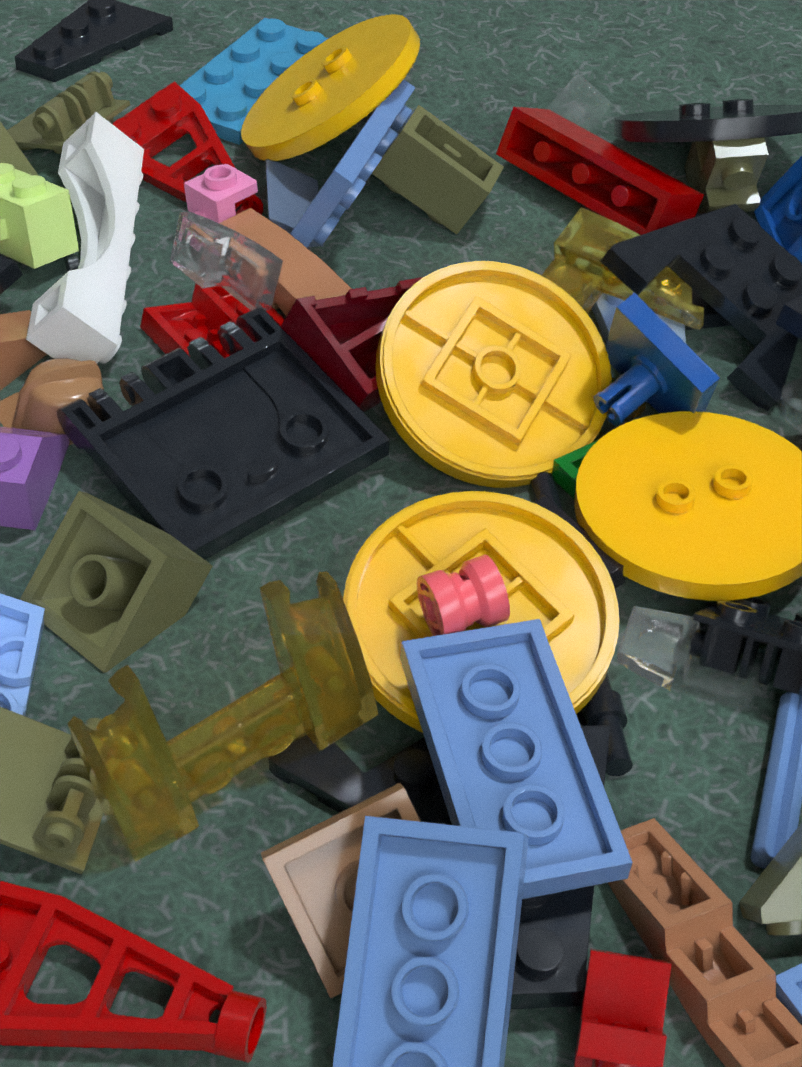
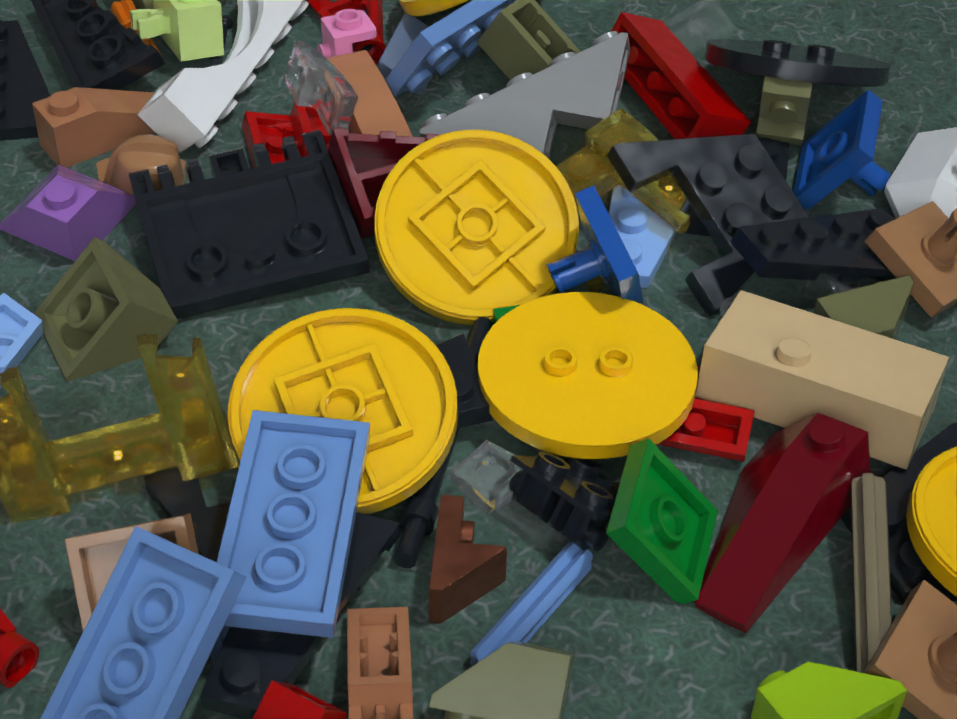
camera: 20 degrees right, 0 degrees up
(457, 600) = (317, 391): coral wheel -> none
(512, 205) = (571, 92): none -> light grey slope
(682, 757) = (460, 568): none -> copper slope

